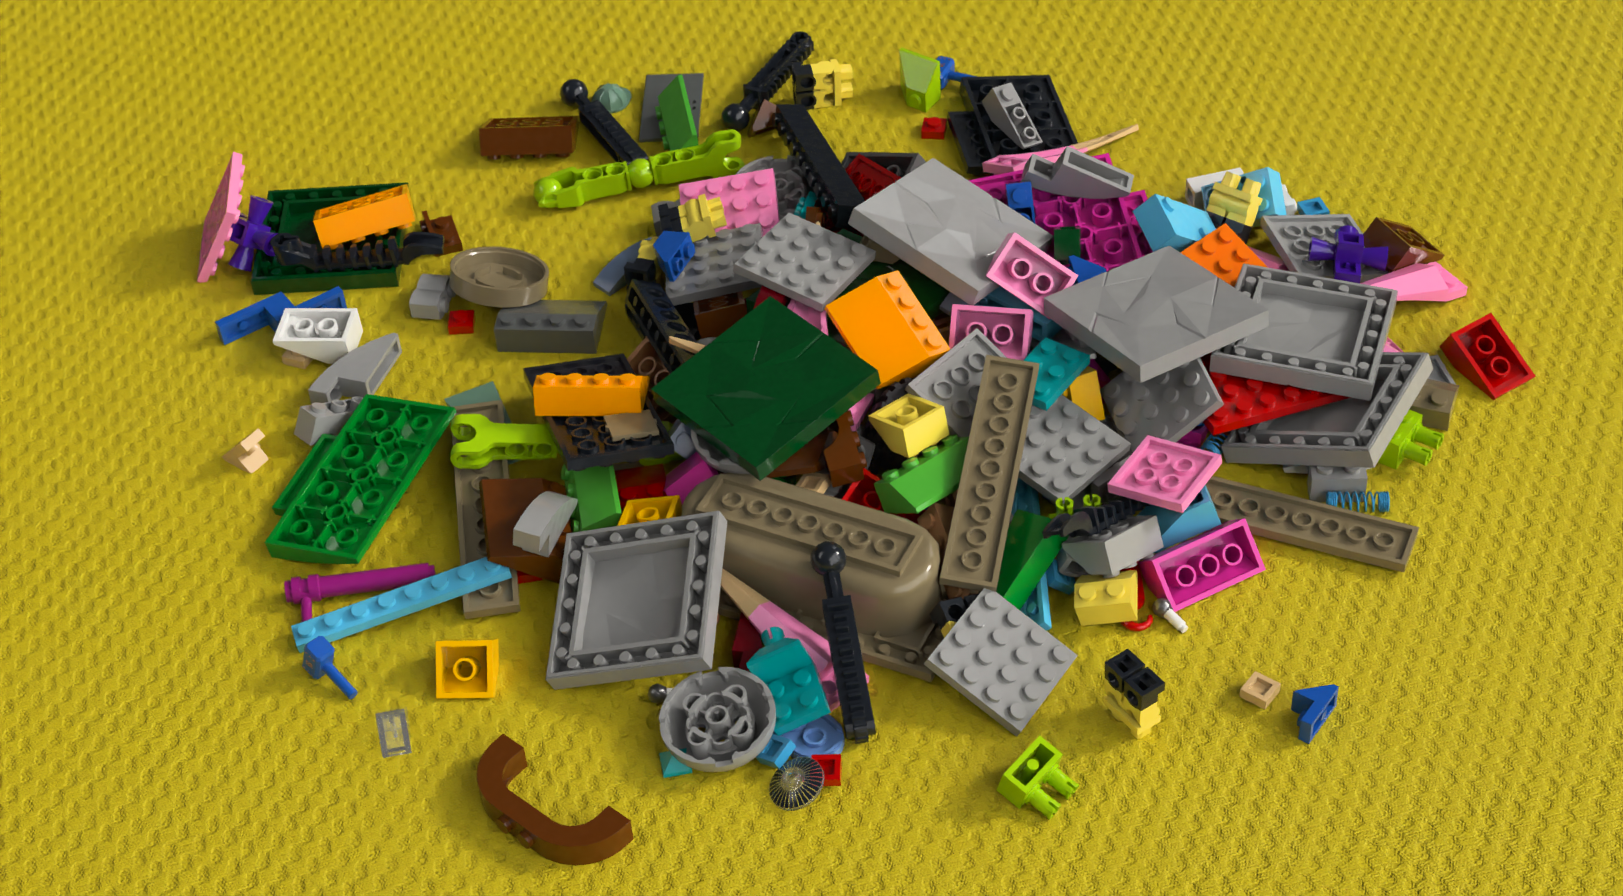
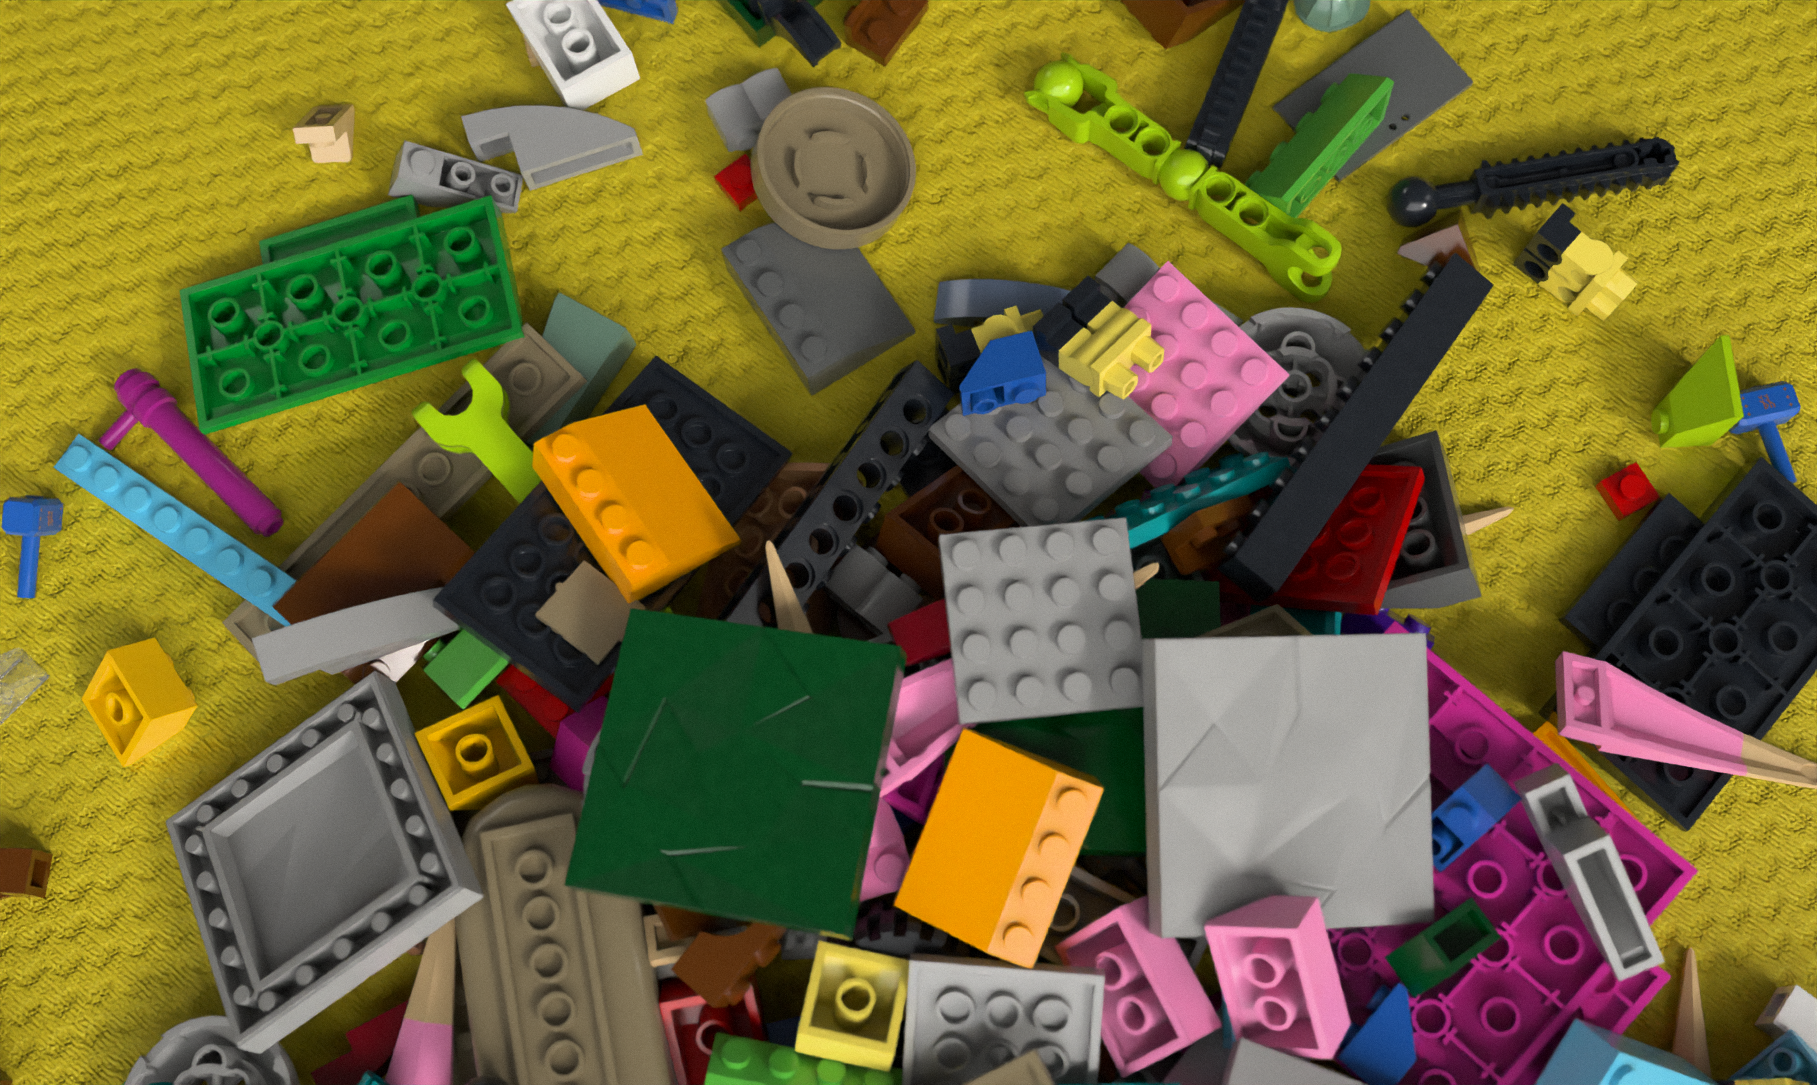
camera: 55 degrees right, 30 degrees up
(1011, 116) = (1718, 611): light grey slope -> none

